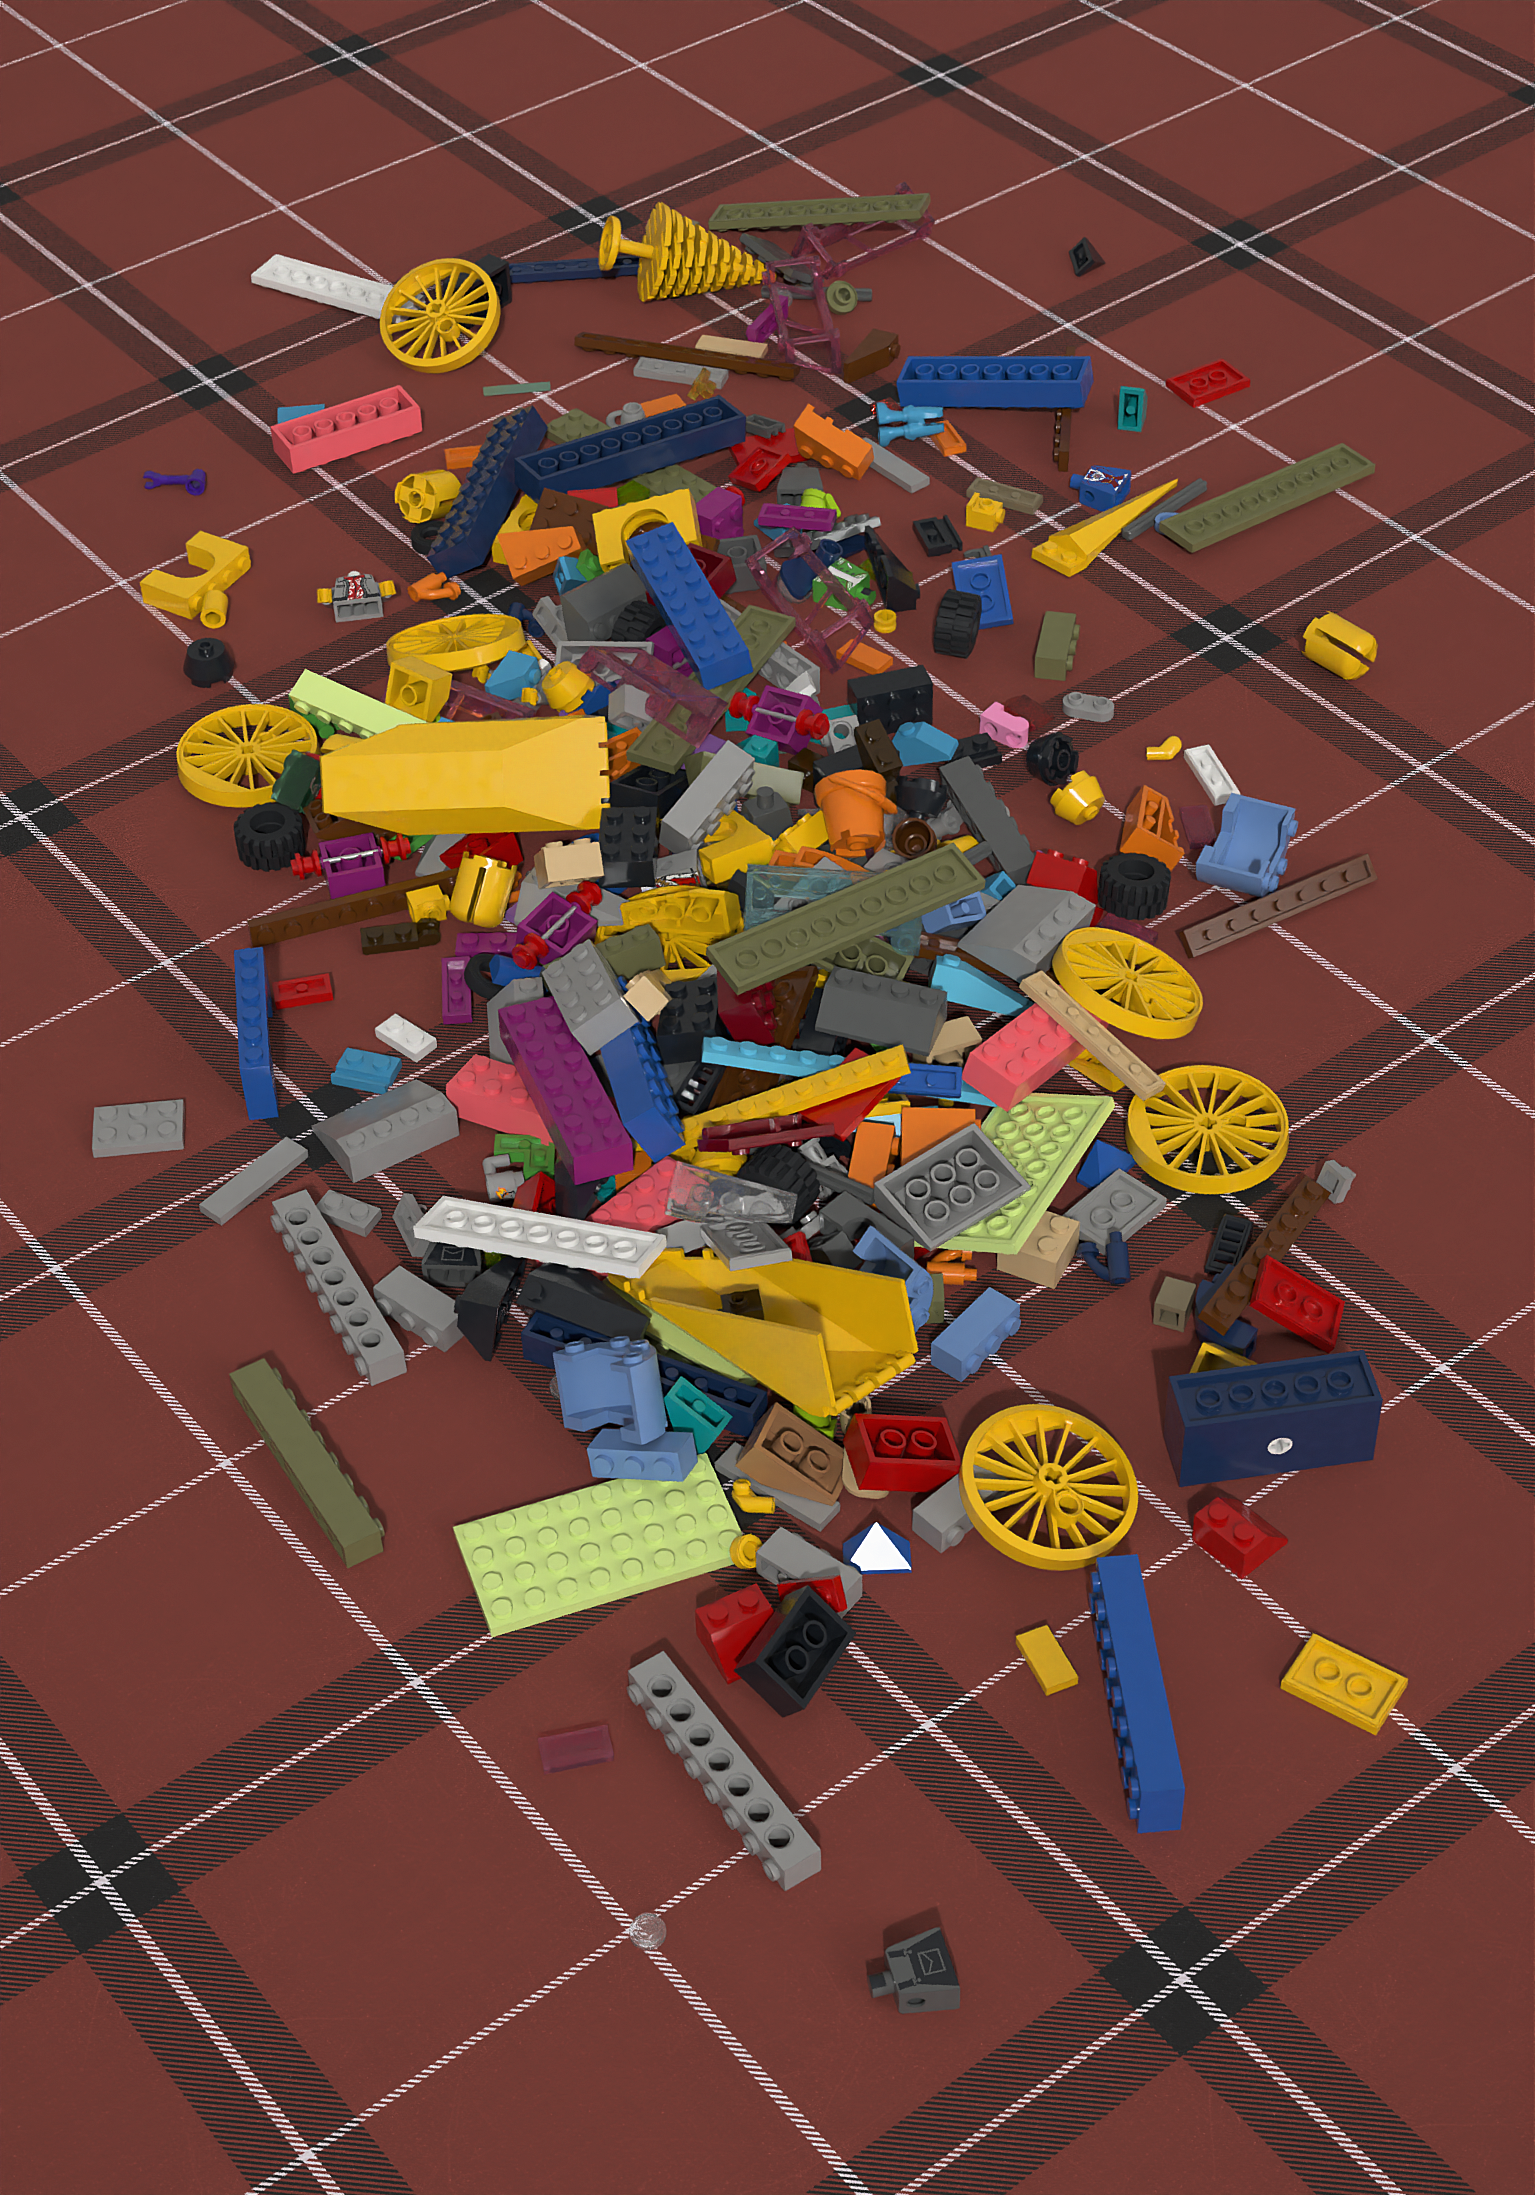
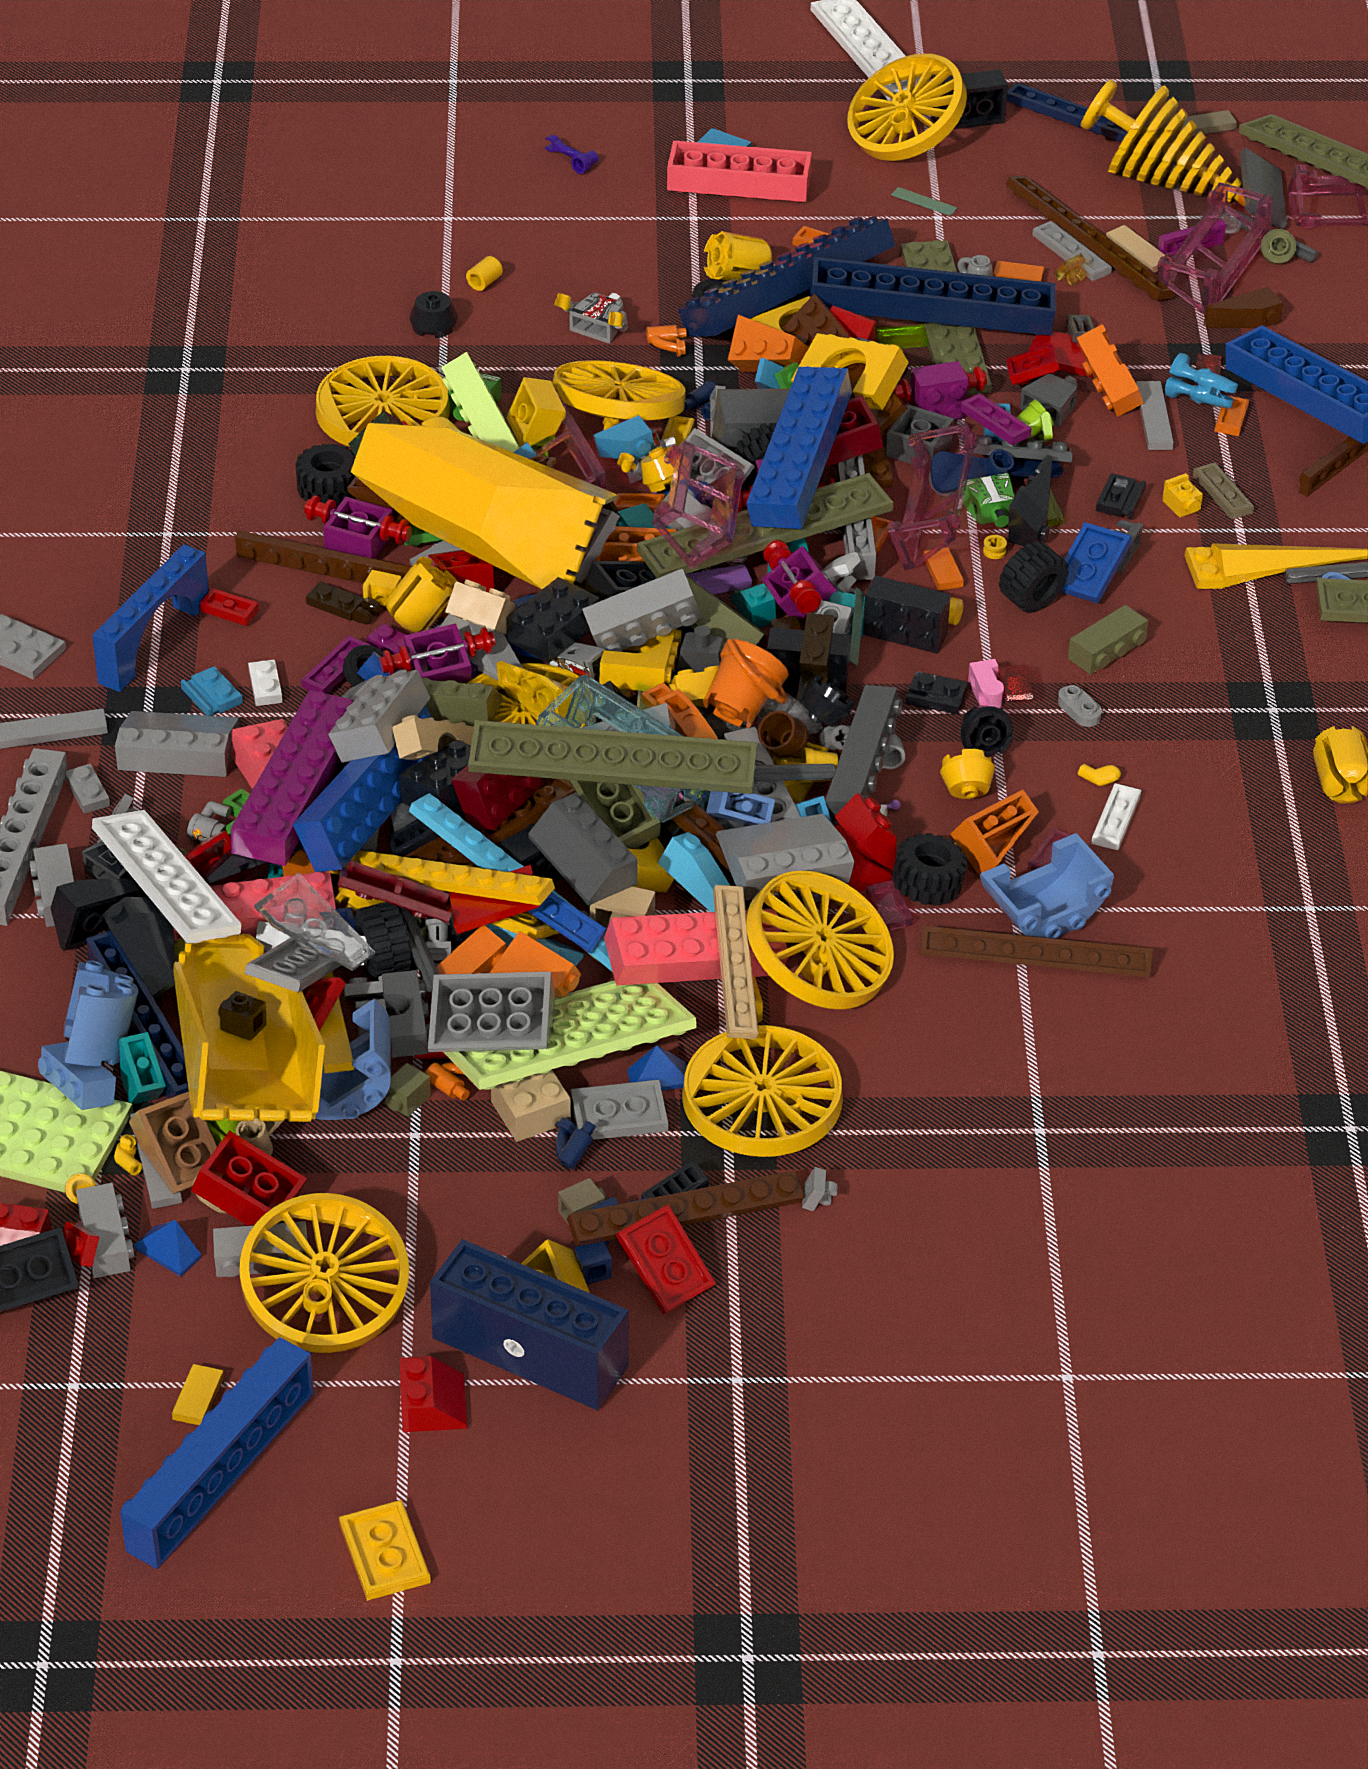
camera: 35 degrees right, 0 degrees up
(184, 596) = (533, 240): yellow arch -> none
(923, 744) = (895, 662): dark azure slope -> none
(975, 1334) = (411, 1136): medium blue brick -> none
(1102, 487) = (1313, 524): blue torso -> none

